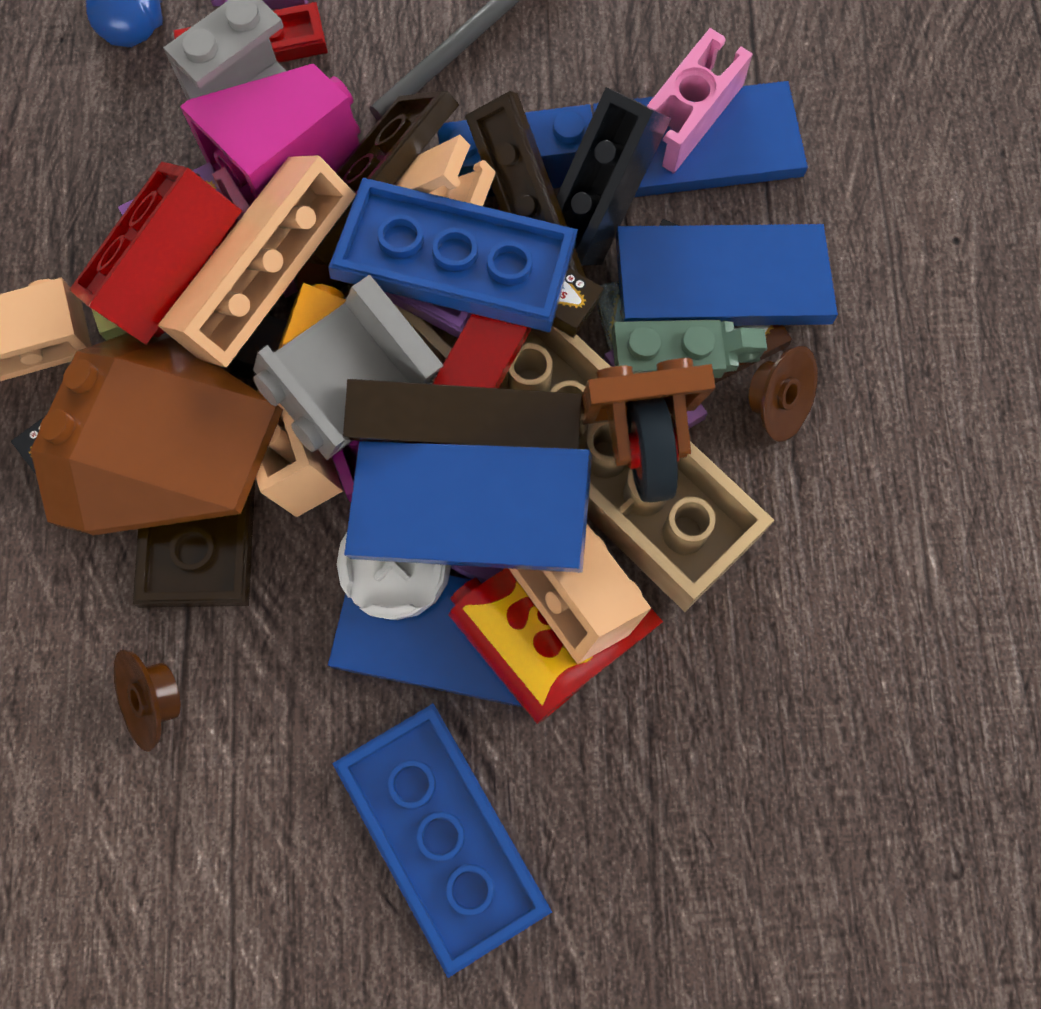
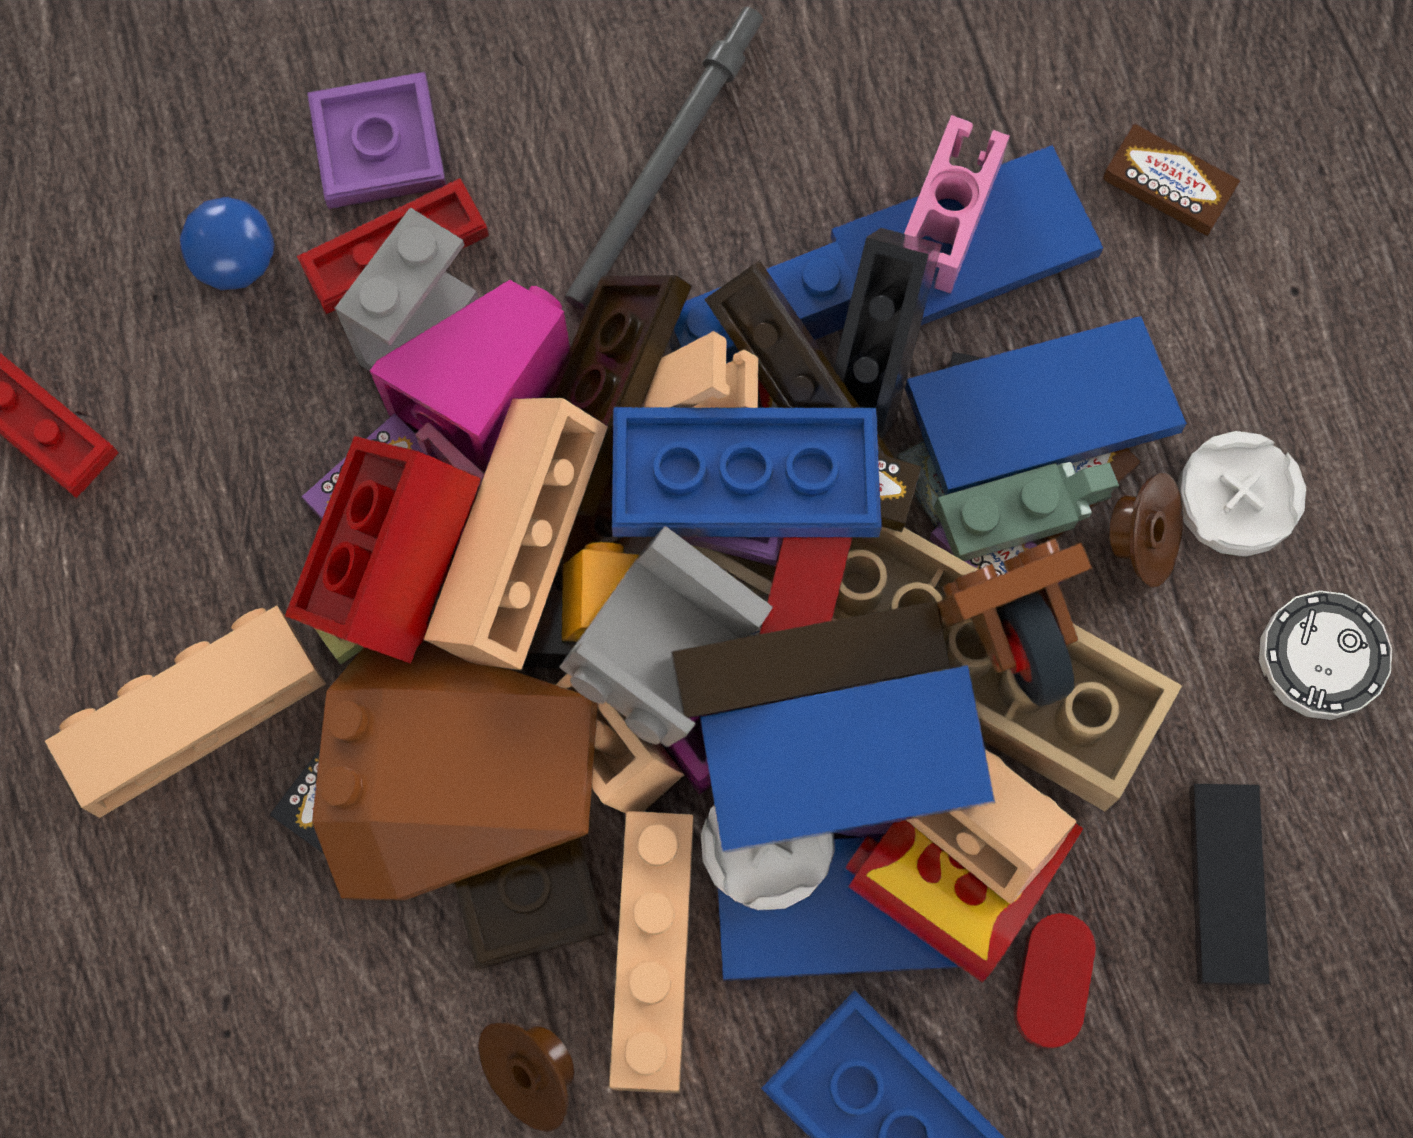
camera: 15 degrees left, 0 degrees up
(273, 629) = (652, 953): none -> light nougat brick
(603, 740) = (1054, 981): none -> red tile
(772, 700) = (1228, 885): none -> black tile
(869, 386) = (1241, 494): none -> white tile
(877, 130) = (1170, 179): none -> tile
(906, 532) = (1325, 655): none -> tile

